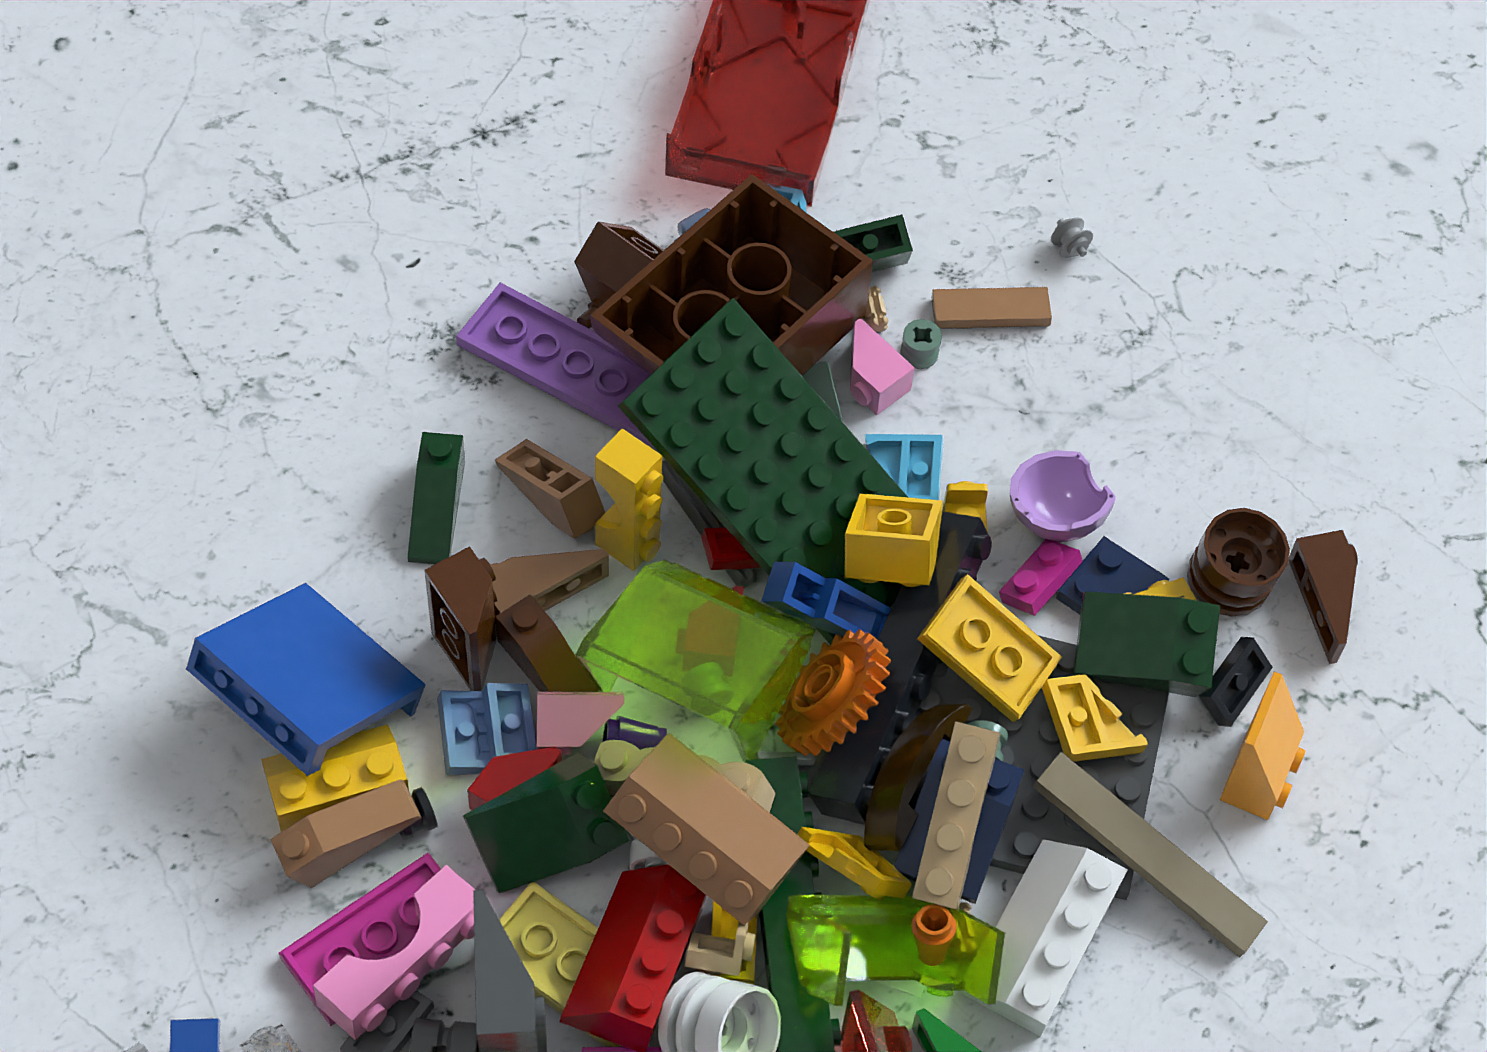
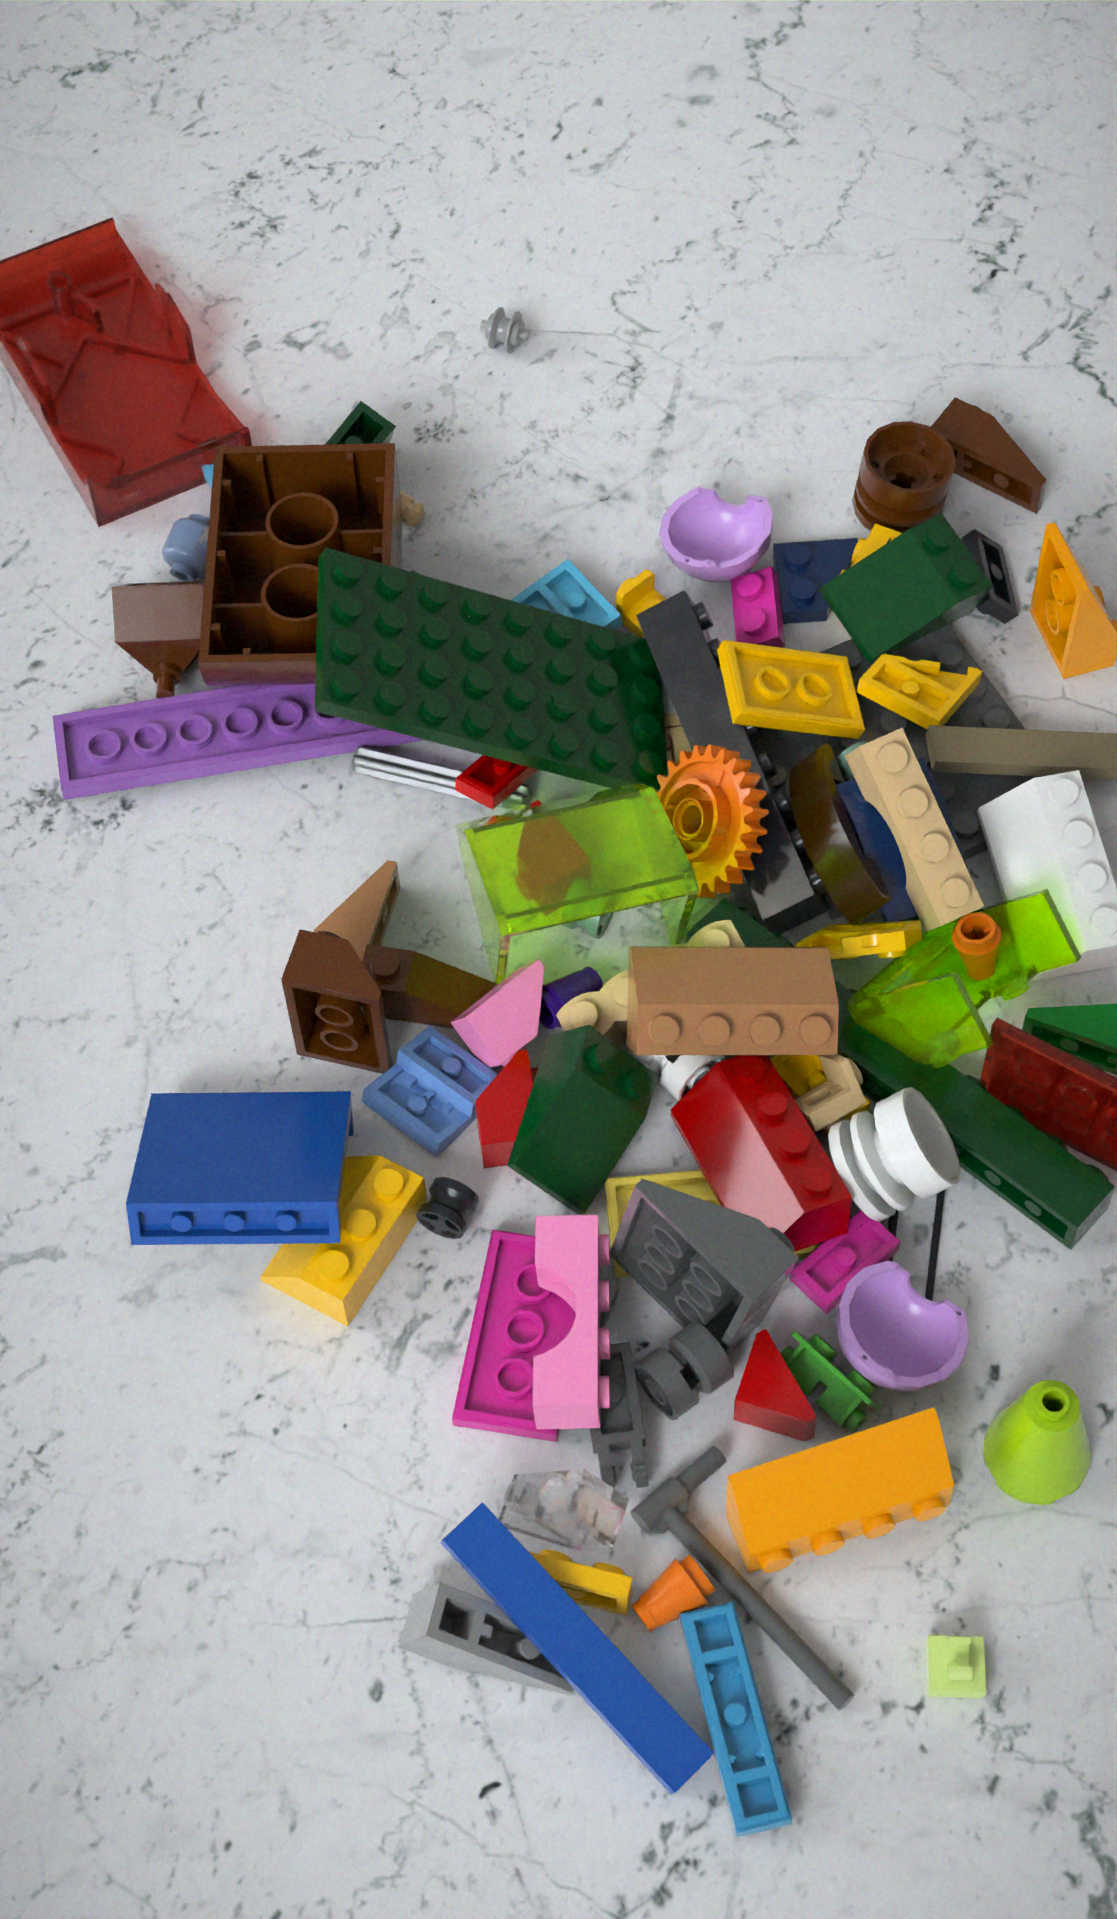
camera: 35 degrees left, 0 degrees up
(343, 832) = (413, 1265): medium nougat slope -> none
(436, 497) = (187, 936): dark green slope -> none
(554, 487) = (285, 847): medium nougat slope -> none
(633, 479) = (385, 768): yellow arch -> none
(823, 601) = (623, 757): blue slope -> none
(877, 370) = (453, 548): bright pink slope -> none
(893, 539) = (635, 658): yellow slope -> none
(921, 354) = (477, 511): sand green wheel -> none
(991, 307) = (494, 434): medium nougat tile -> none

